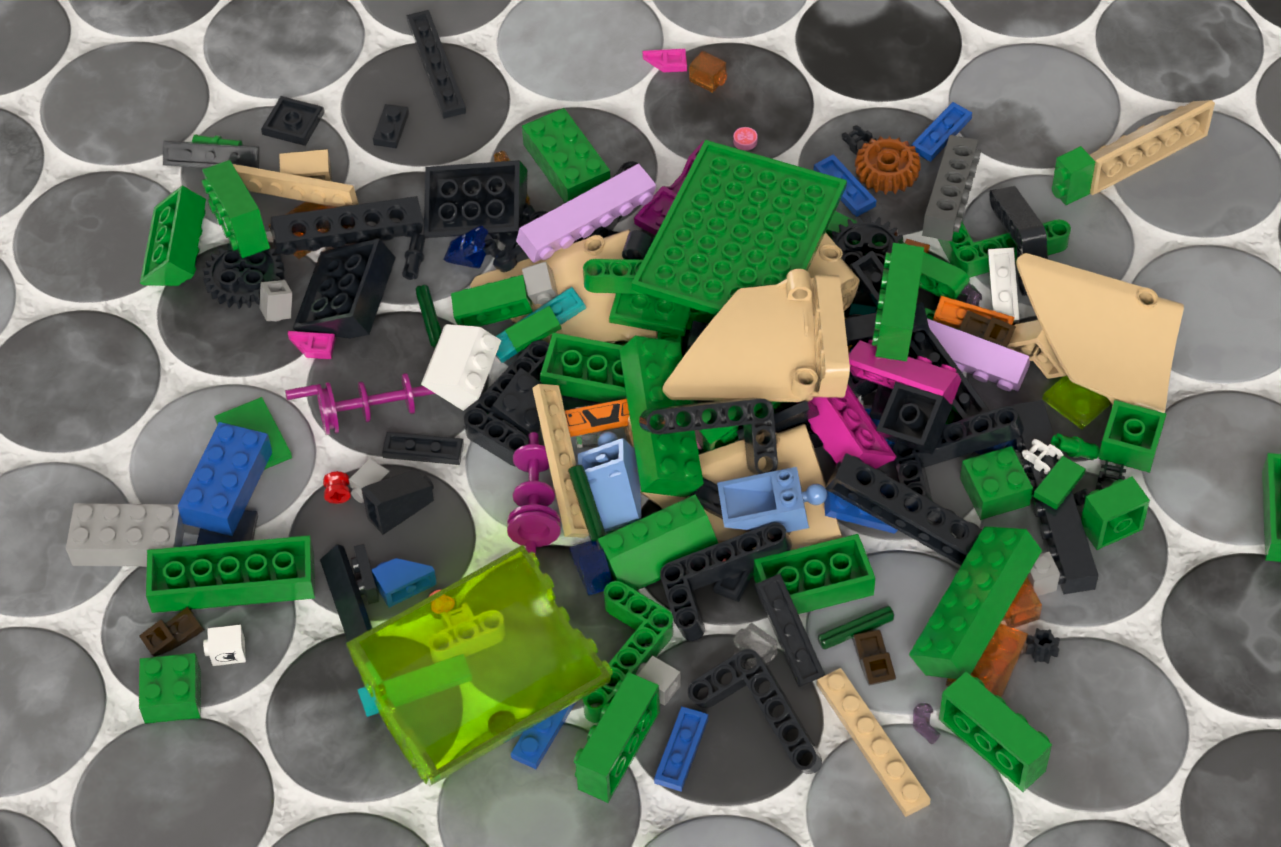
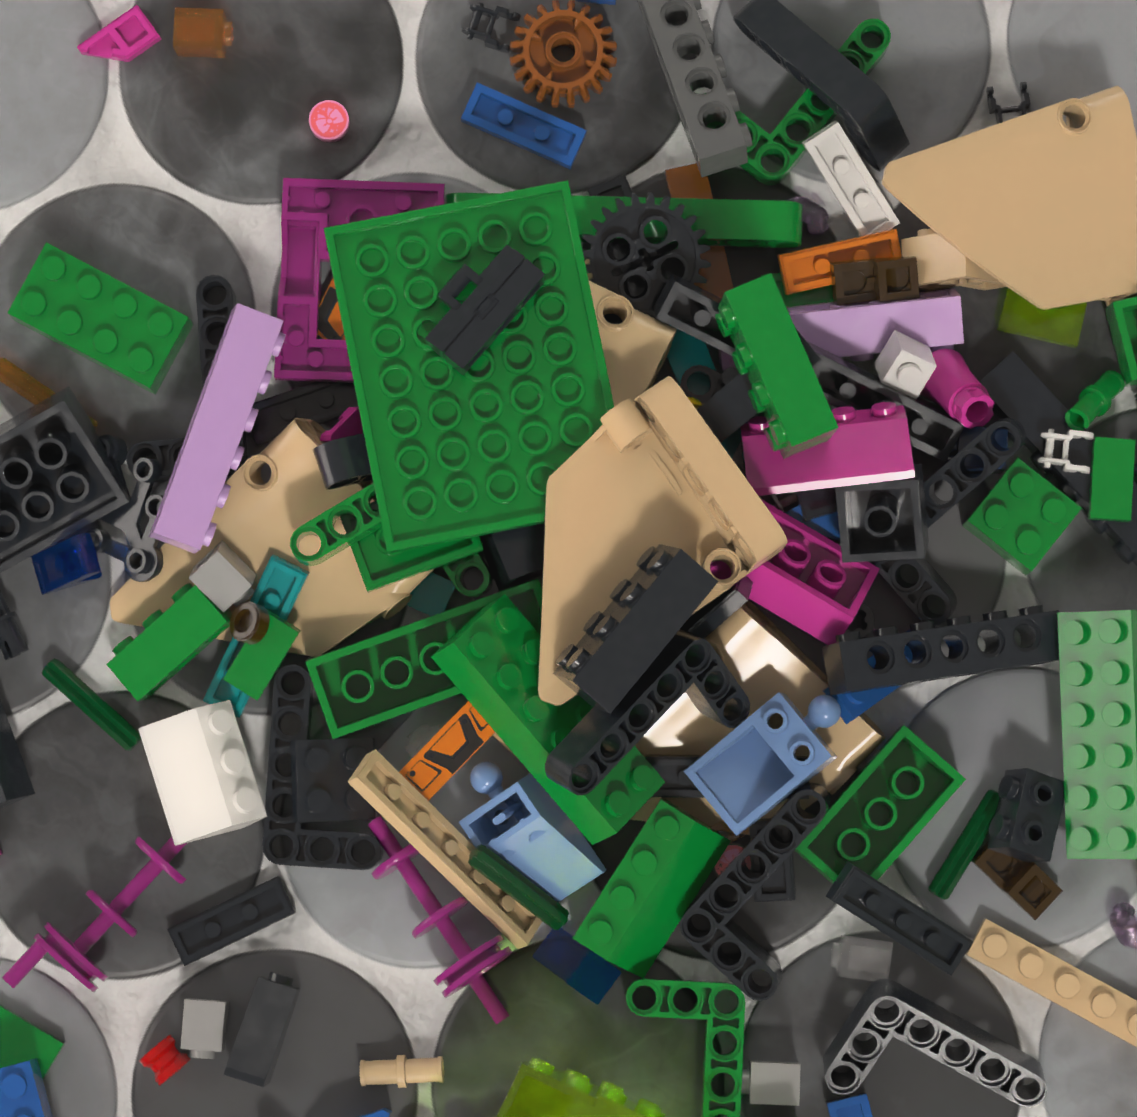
camera: 35 degrees left, 30 degrees up
(454, 561) = (402, 1071): none -> tan pin
(537, 306) = (249, 622): none -> dark brown tile
(736, 368) = (634, 626): none -> black brick
(761, 204) = (476, 323): none -> black piece
(900, 622) = (1027, 815): none -> black brick
(976, 370) = (905, 364): none -> white brick
(993, 388) = (958, 390): none -> dark pink plant

